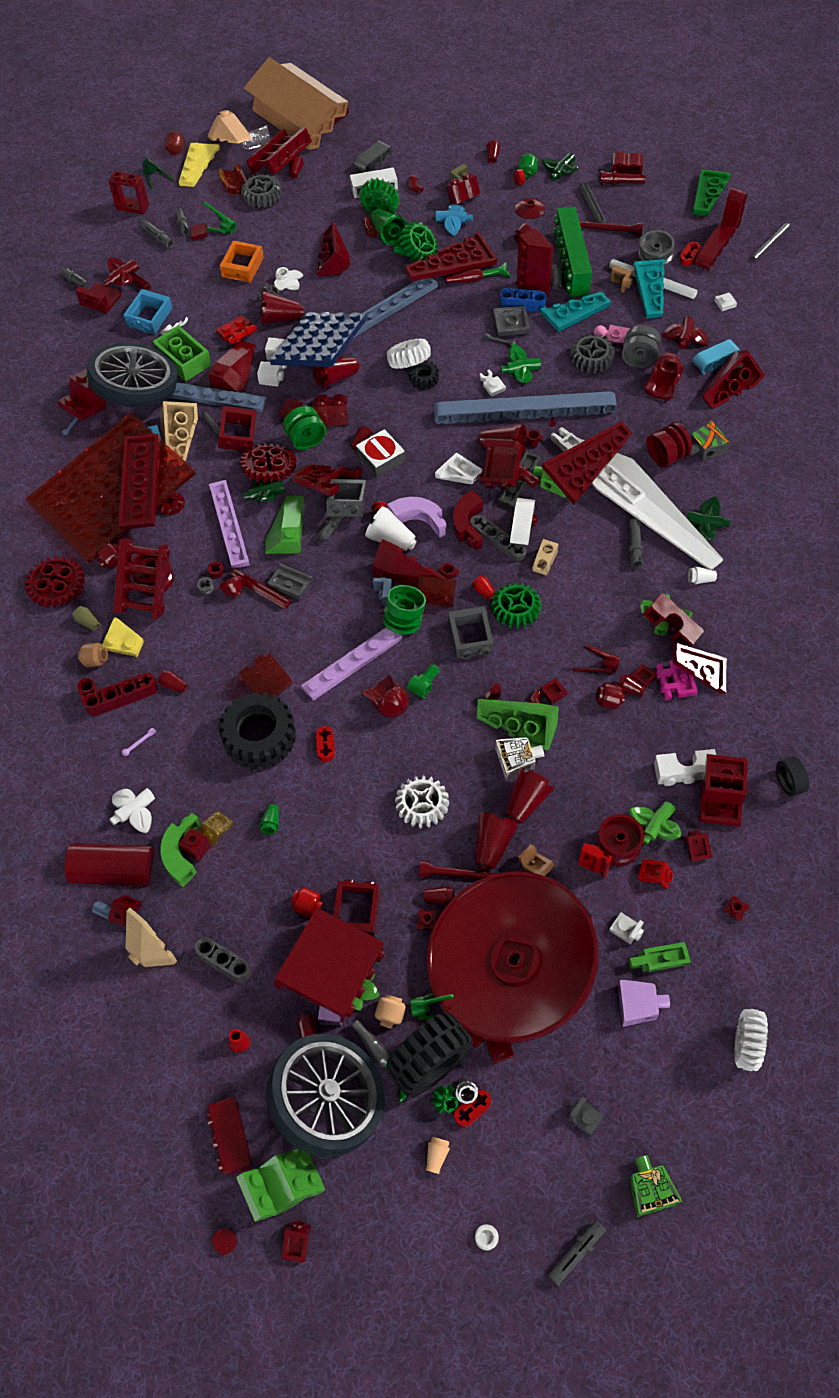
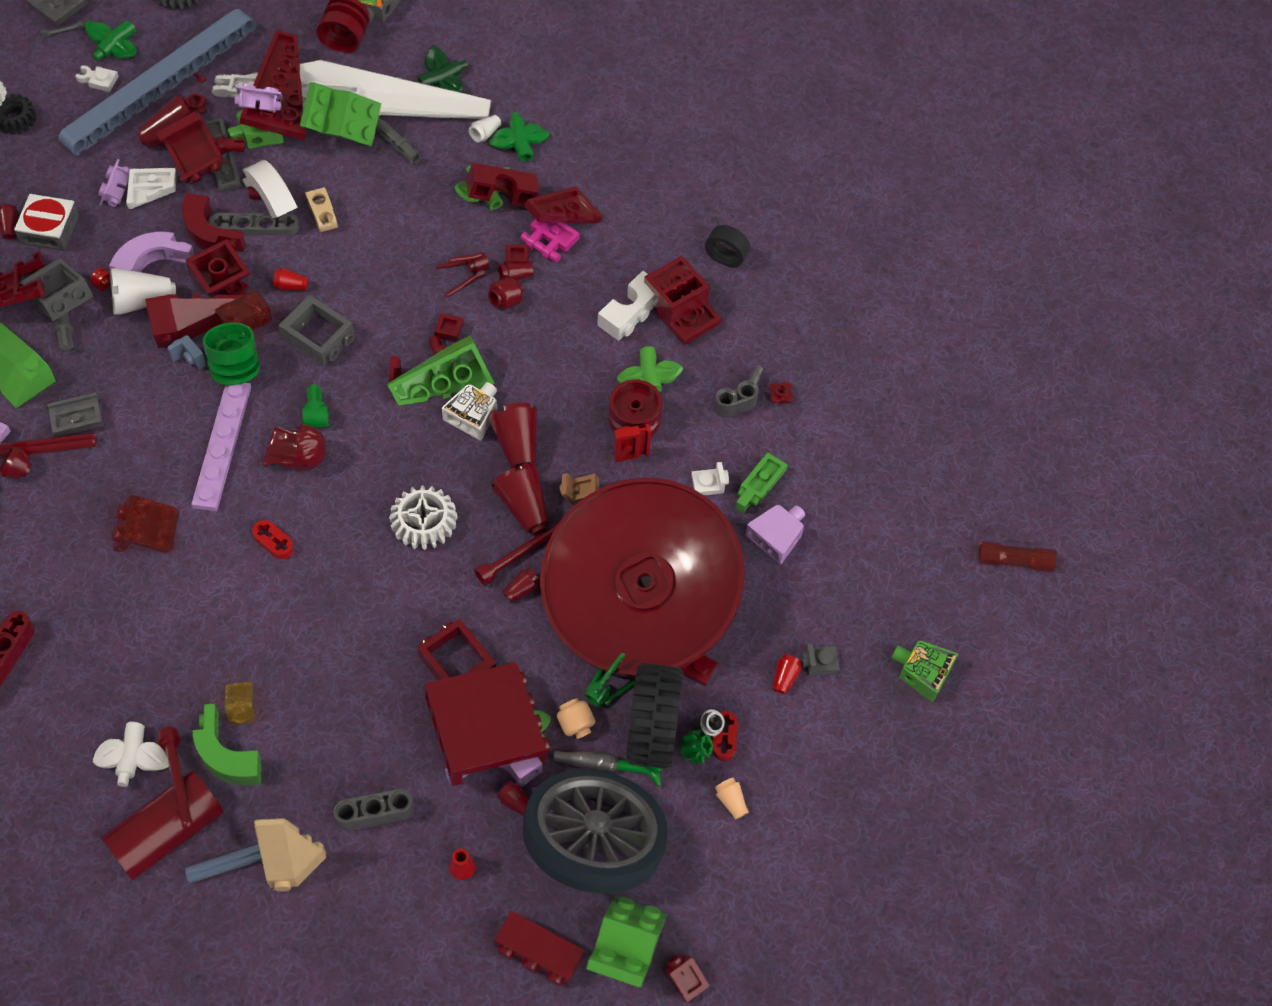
camera: 50 degrees left, 0 degrees up
(120, 906) = (224, 851): dark red bracket -> none
(125, 752) = (63, 710): lavender hinge -> none
(158, 817) = (169, 740): none -> dark red piece
(172, 681) = (44, 603): dark red cone -> none
(194, 845) = (236, 732): dark red brick -> none
(252, 709) = (199, 605): black tyre -> none
(270, 821) = (290, 651): green cone -> none
(306, 902) = (403, 692): red head -> none
(422, 924) = (530, 623): dark red plate -> none
(434, 458) = (111, 192): none -> lavender hinge
(446, 549) = (216, 268): none -> dark red slope
(486, 1237) = (835, 825): white tile -> none
(519, 613) = (322, 271): green gear -> none
(551, 1104) = (786, 673): none -> red cone
(570, 462) = (250, 94): none -> lavender hinge
(596, 1231) = (915, 759): dark grey pin -> none
(609, 503) = (340, 114): none -> bright green bracket
(656, 872) = (689, 414): red bracket -> none
(697, 845) = (702, 364): dark red bracket -> none
(697, 891) = (735, 398): none -> flat silver beam
(719, 598) = (519, 137): none -> green plant
(751, 1039) = (894, 483): white gear -> none
(812, 1184) = (1036, 558): none -> clear red axle

